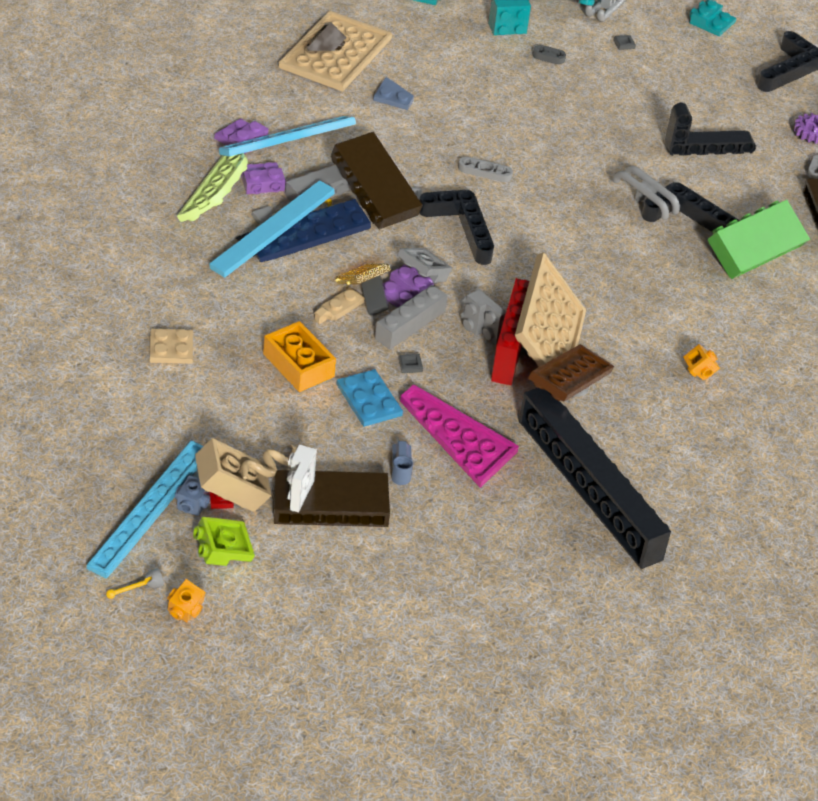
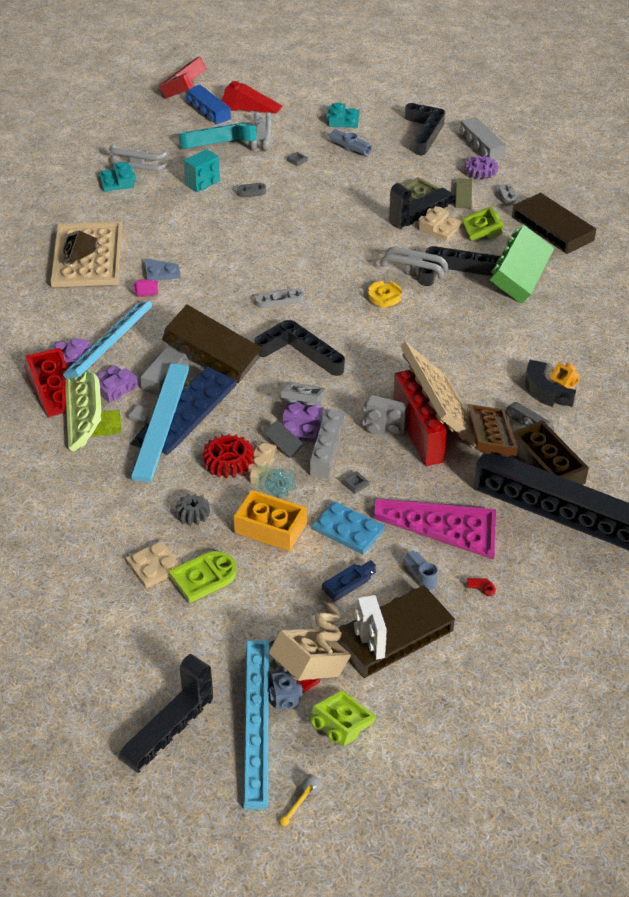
camera: 25 degrees left, 0 degrees up
(83, 471) = (174, 718): none -> black beam
(185, 601) = (359, 792): light orange brick -> none
(204, 147) = (47, 379): none -> red wedge
(206, 374) = (204, 575): none -> lime plate
(229, 210) = (109, 424): none -> clear neon green piece
(241, 316) = (192, 509): none -> dark grey gear
(310, 285) = (228, 459): none -> red gear
(330, 439) = (348, 580): none -> dark blue hinge
(343, 333) = (286, 479): none -> clear light blue brick
(363, 105) = (146, 288): none -> dark pink brick
(363, 273) = (262, 425): clear yellow tile -> none
(449, 503) = (483, 585): none -> red arm
(600, 214) = (384, 294): none -> yellow plate
(613, 422) = (547, 451): none -> dark brown brick
(630, 385) = (520, 413): none -> dark grey beam
(670, 368) = (544, 390): none -> black arch
(694, 47) = (351, 142): none -> sand blue piece
(714, 165) = (439, 223): none -> tan plate
(721, 121) = (420, 188): none -> olive plate
(759, 184) = (483, 223): none -> lime plate
(771, 147) = (464, 193): none -> olive tile

